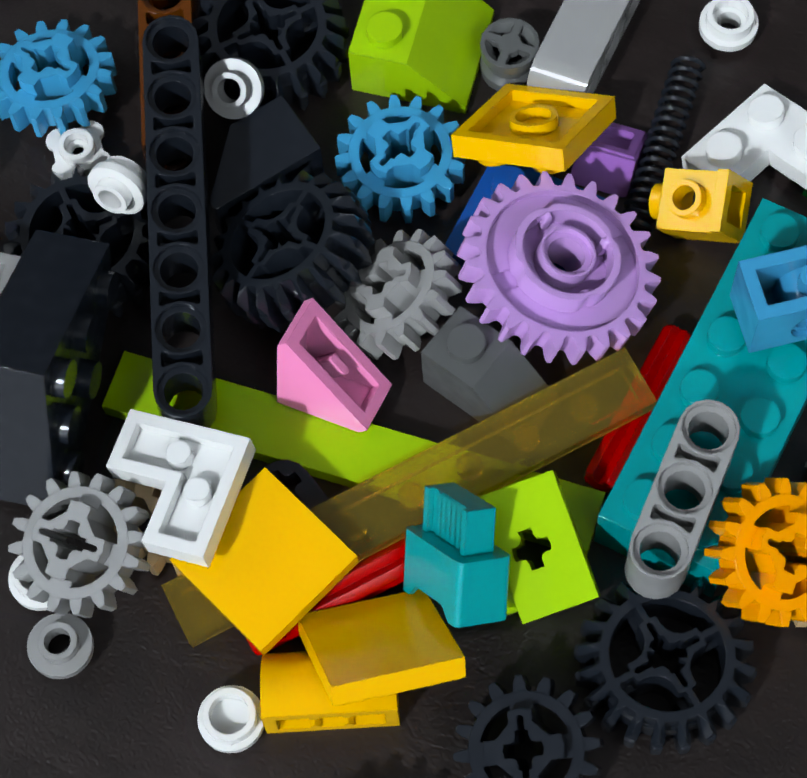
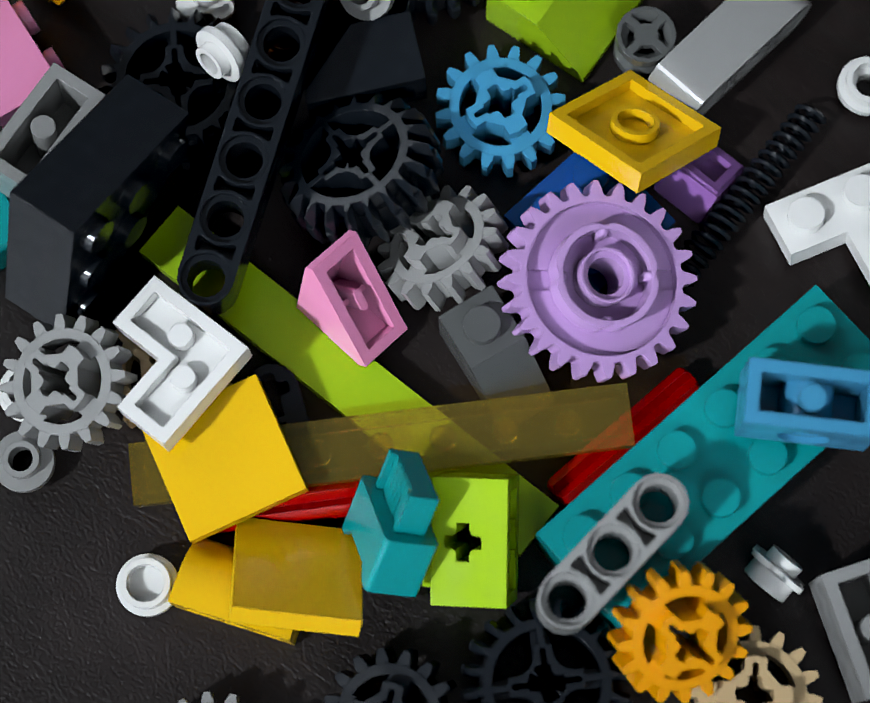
camera: 20 degrees right, 10 degrees up
(718, 209) = (759, 266): yellow brick -> none

